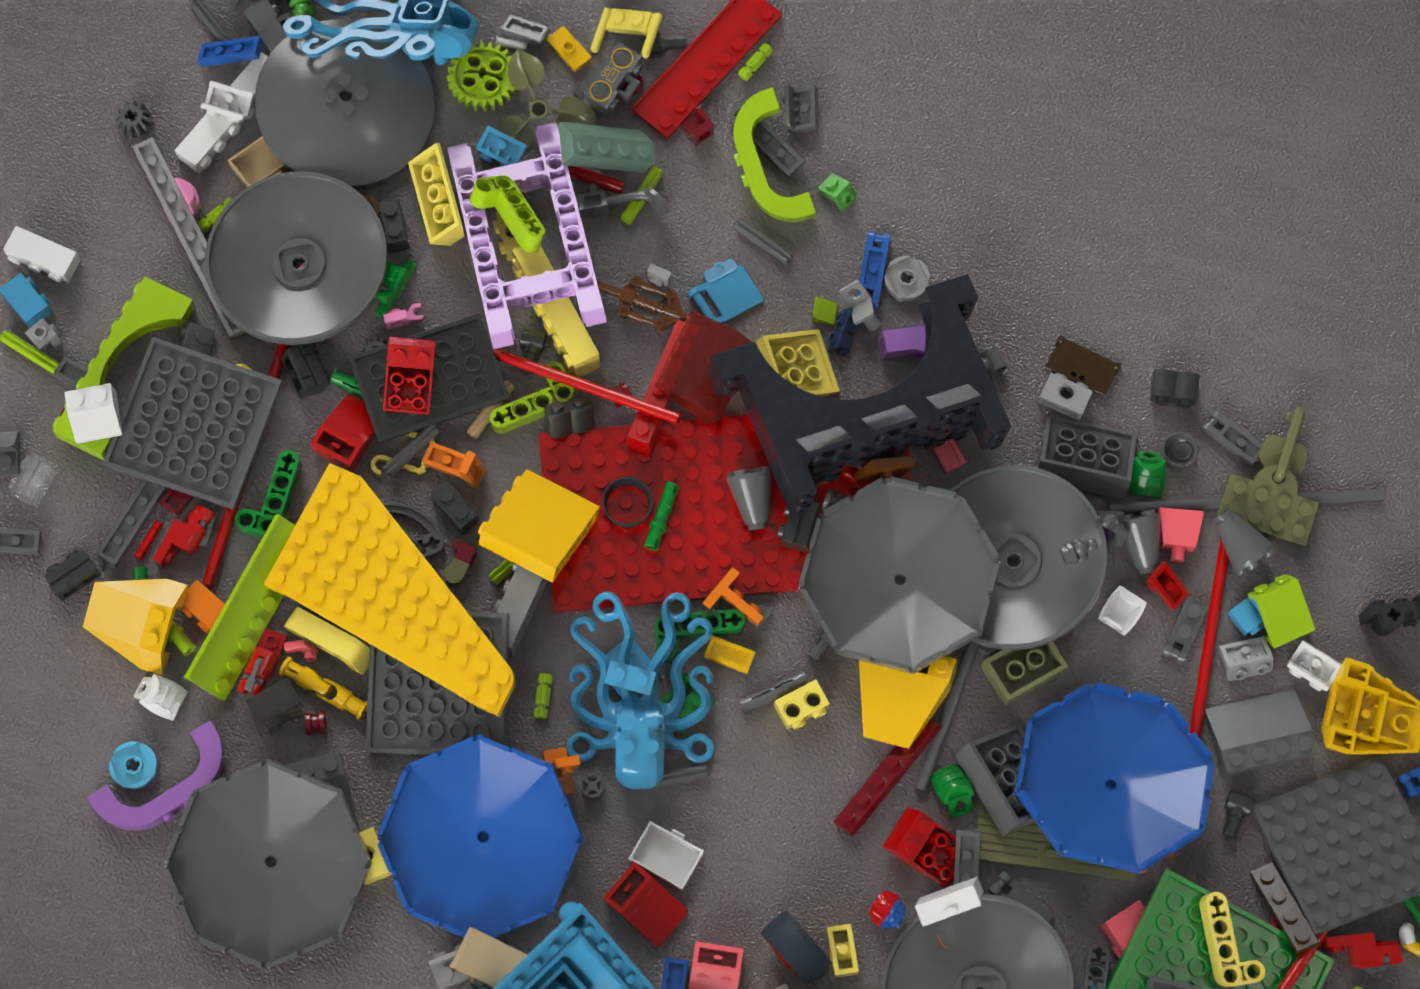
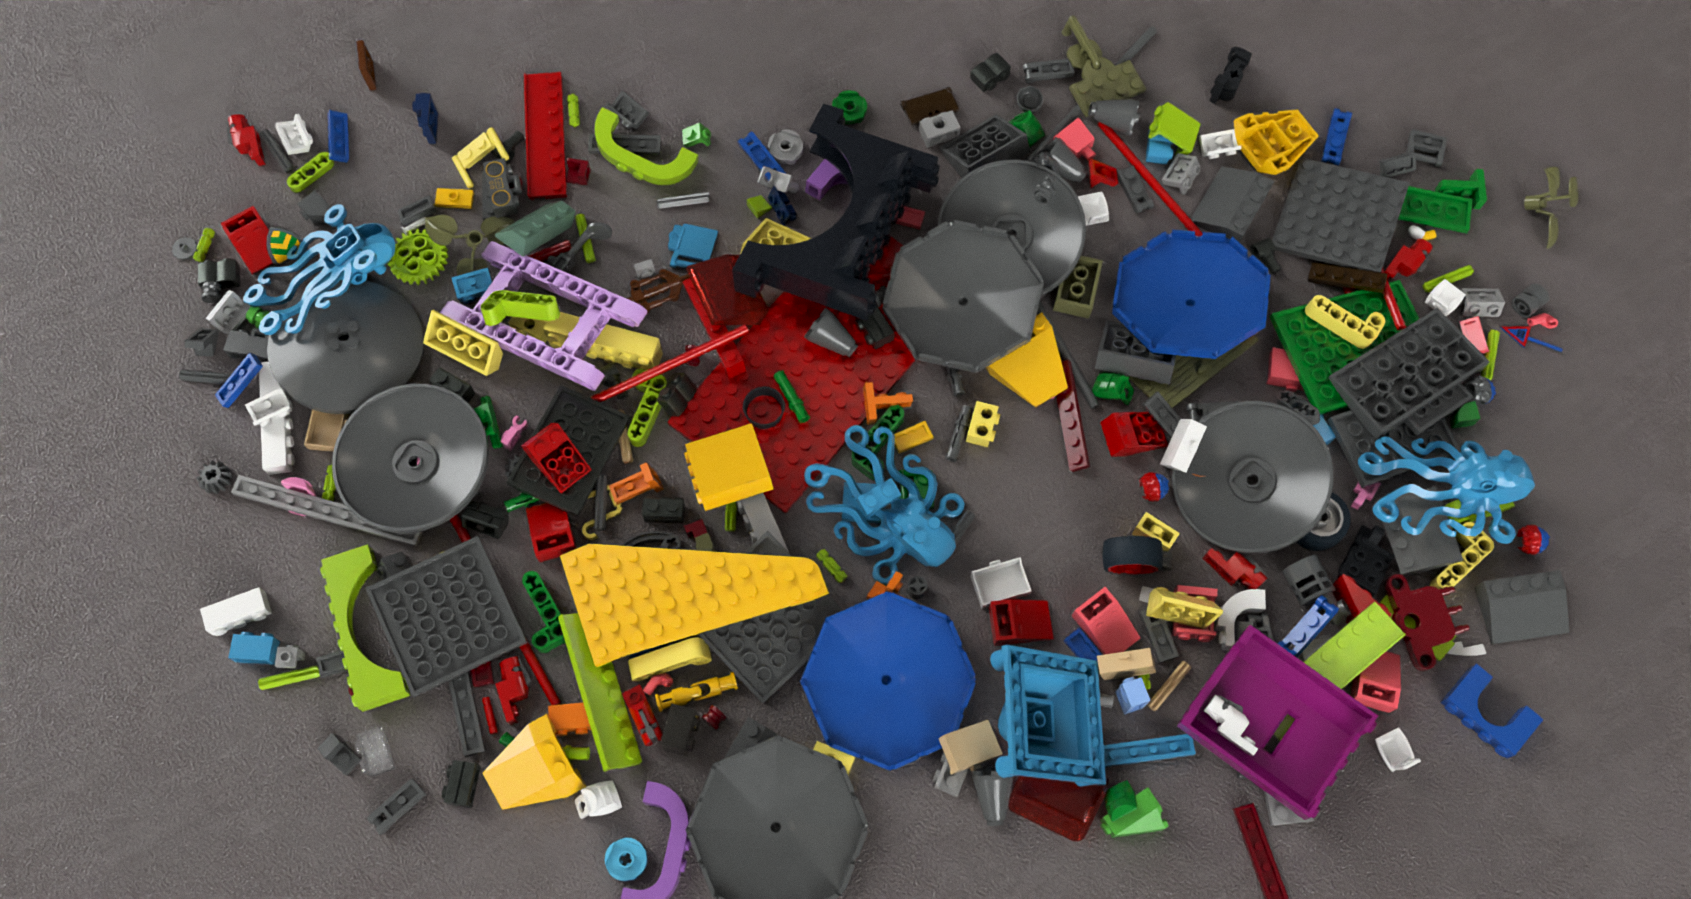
camera: 45 degrees left, 5 degrees down
(93, 413) = (374, 669): white slope -> none
(885, 468) = (890, 249): reddish brown plate -> none
(1018, 296) = (858, 104): none -> green plate

